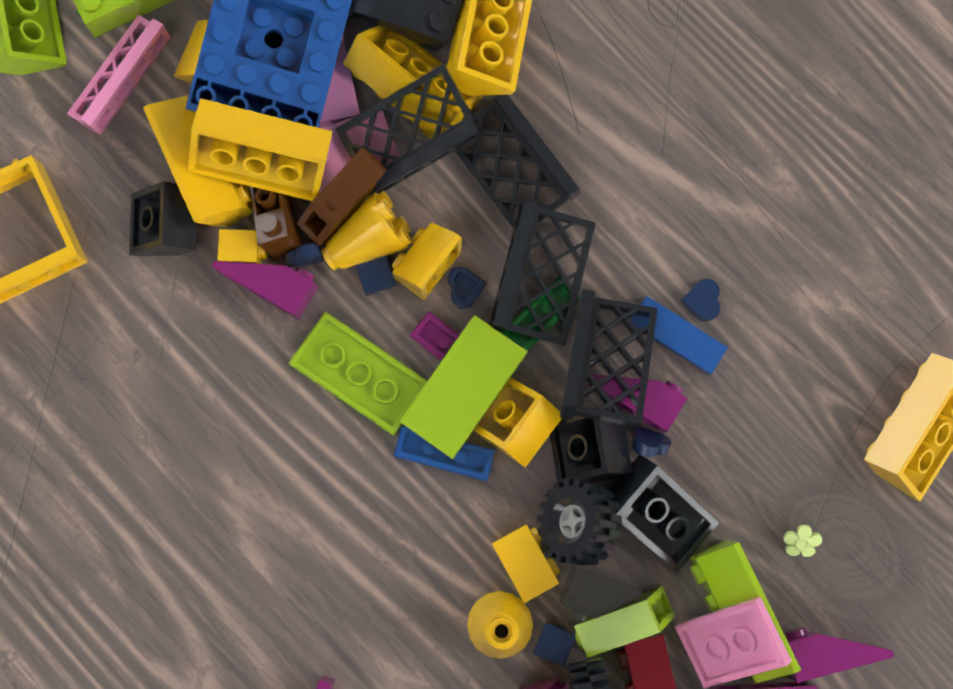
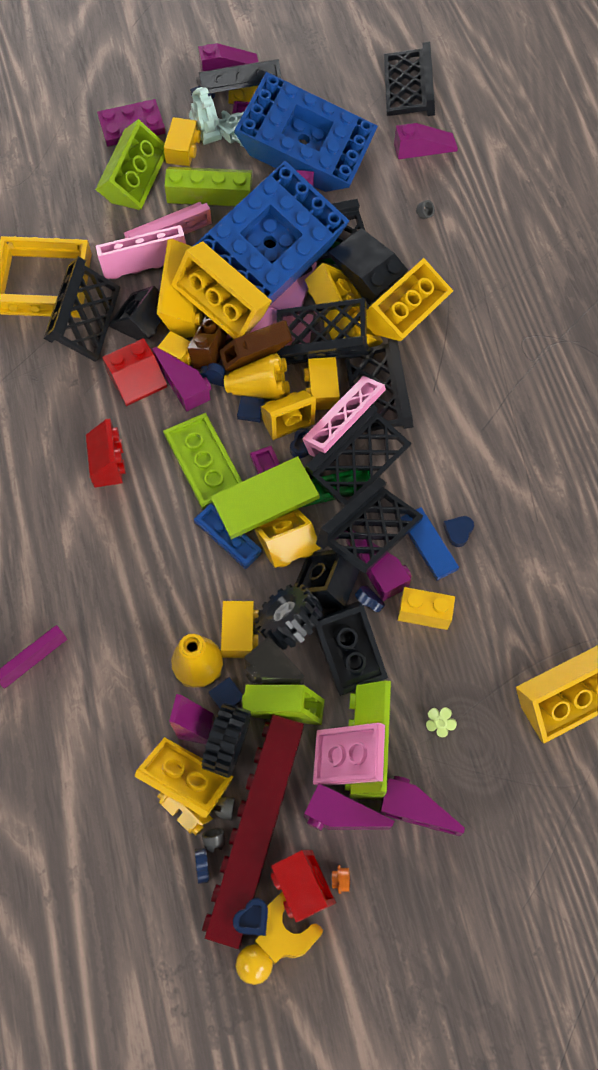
camera: 30 degrees right, 15 degrees down
(63, 257) = (68, 298): none -> black fence
(108, 135) = (136, 252): none -> bright pink brick
(207, 305) = (134, 371): none -> red slope
(240, 438) = (104, 455): none -> red slope
(444, 195) = (322, 381): none -> yellow brick
(496, 230) = (342, 415): none -> bright pink fence
(720, 420) = (426, 608): none -> yellow brick

